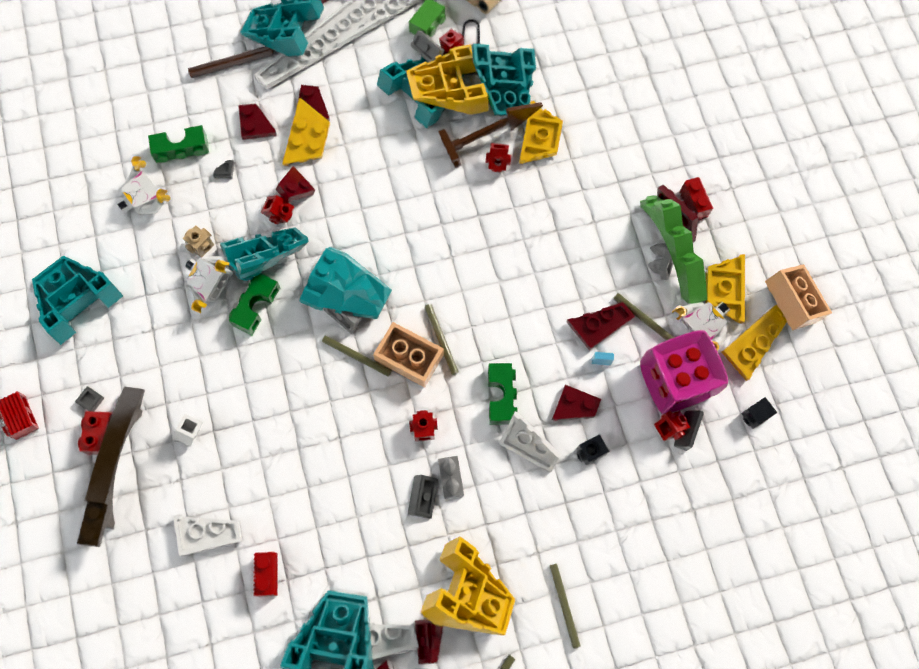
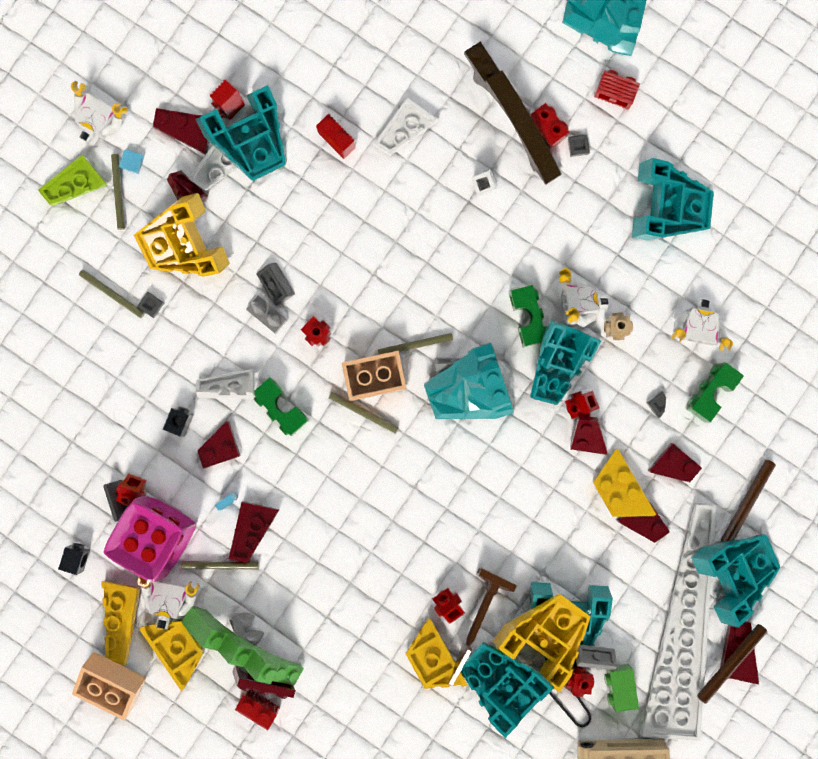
camera: 145 degrees right, 15 degrees up
(539, 567) = (150, 304): none -> dark grey tile

